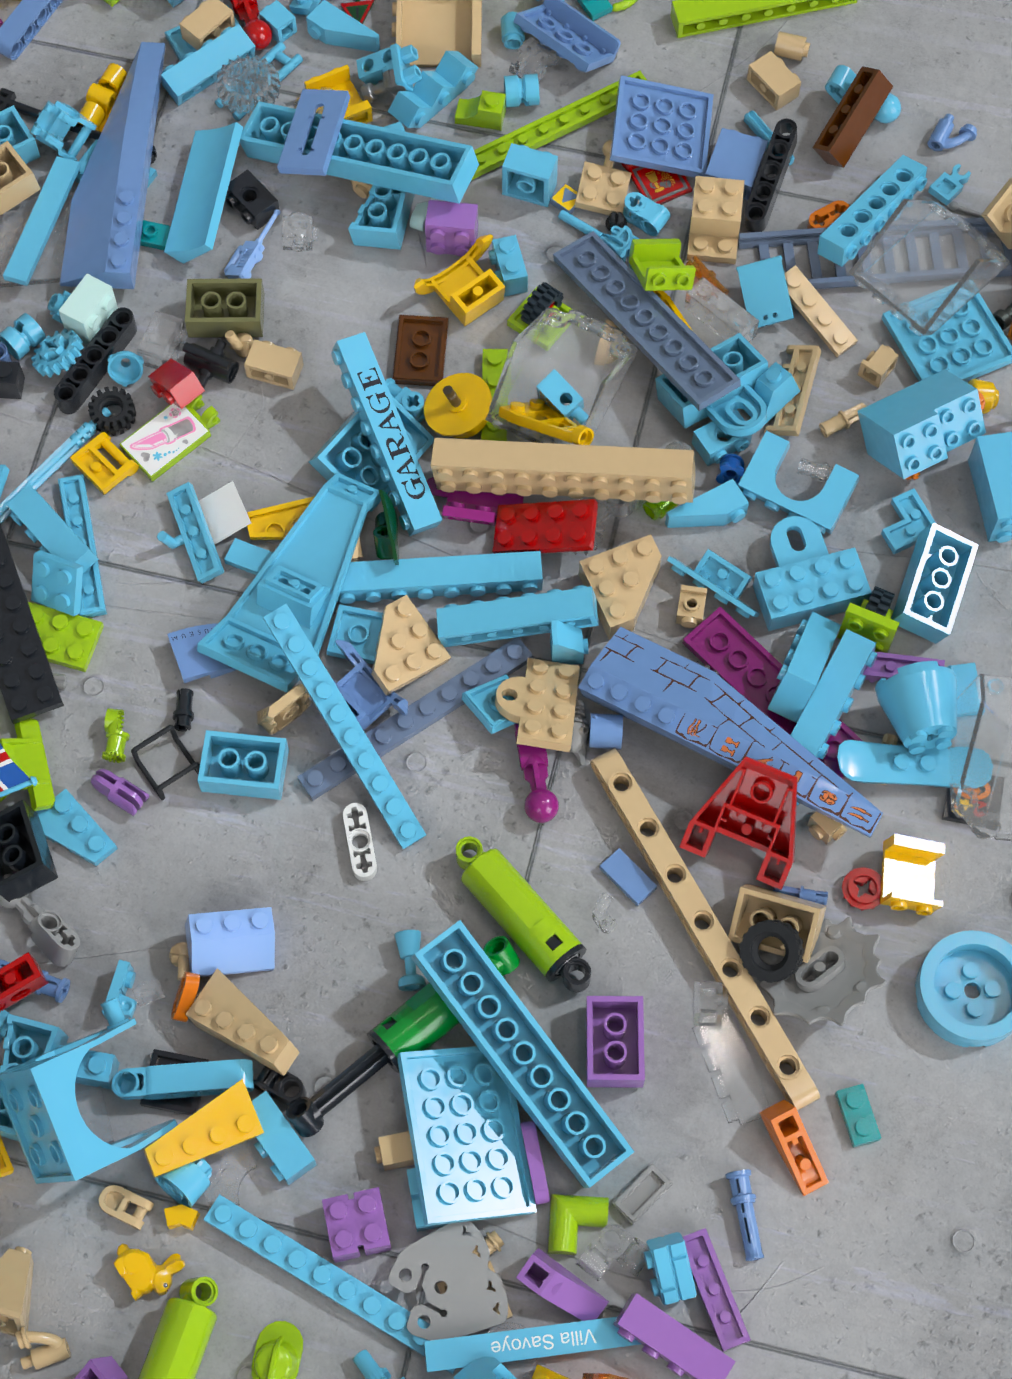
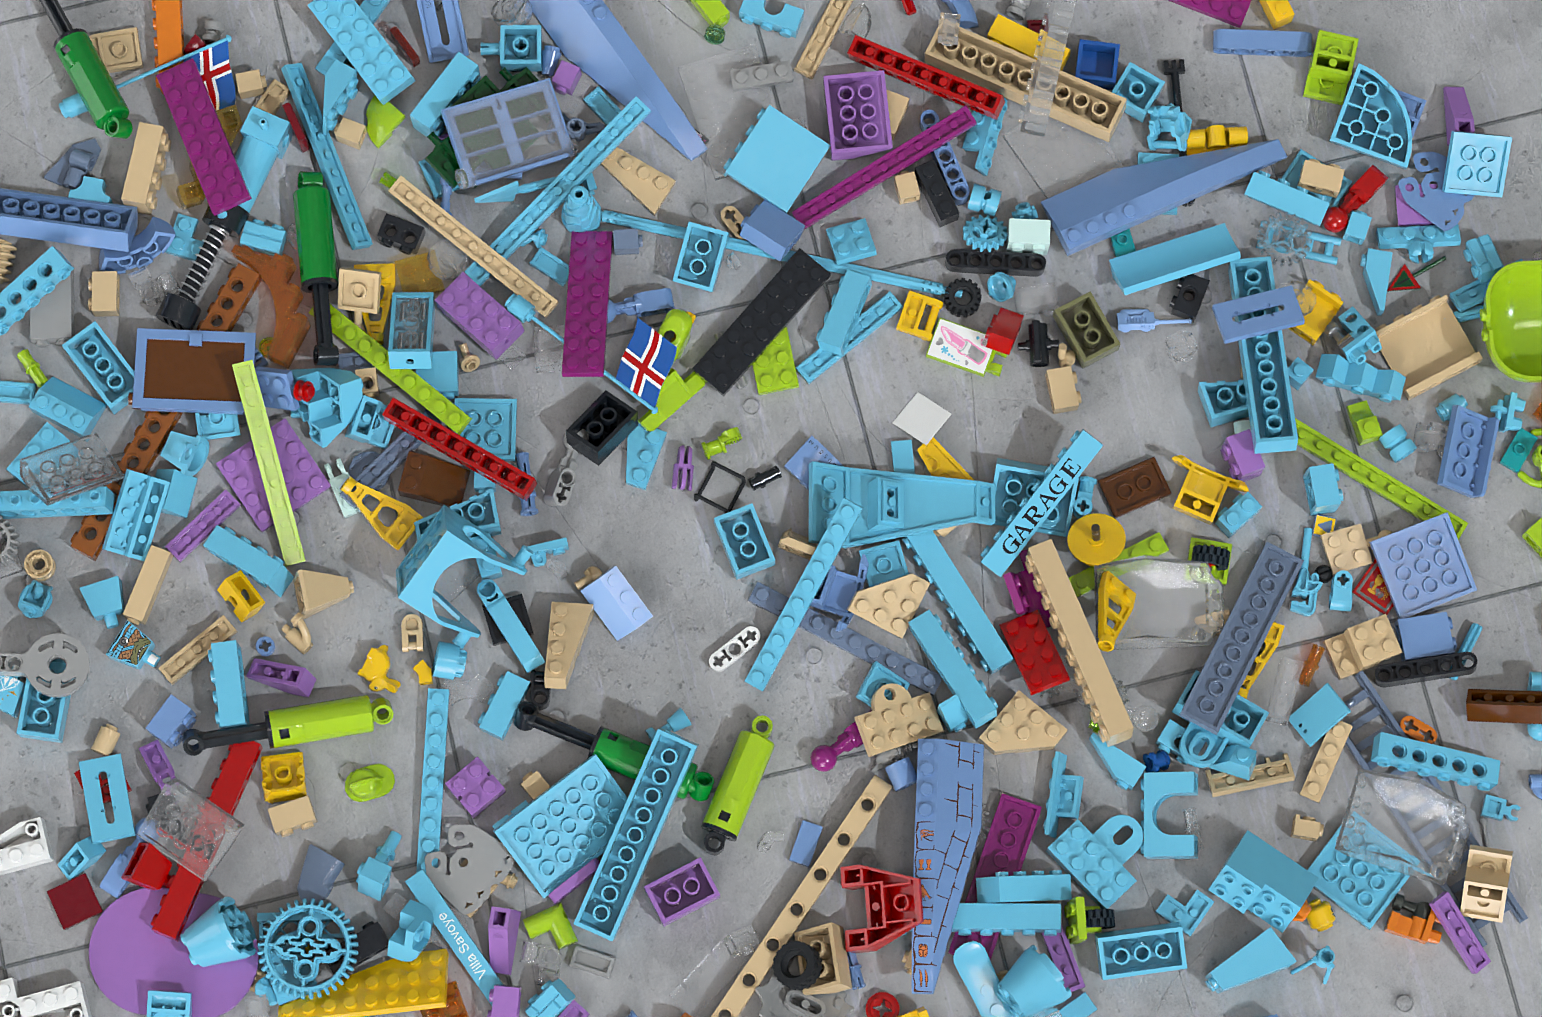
camera: 60 degrees right, 10 degrees up
(41, 221) = (1085, 158): medium azure tile -> none
(56, 583) = (806, 339): medium azure plate -> none
(185, 996) = (565, 594): orange beam -> none
(193, 534) = (898, 409): medium azure plate -> none
(211, 1129) = (485, 662): yellow wing -> none
(386, 531) = (969, 543): dark green panel -> none
(557, 392) = (1143, 604): medium azure torso -> none
(659, 265) = (1294, 626): lime panel -> none
(692, 597) = (1039, 786): tan brick -> none
(774, 80) = (1519, 629): tan brick -> none
(841, 421) = (1245, 823): tan axle -> none

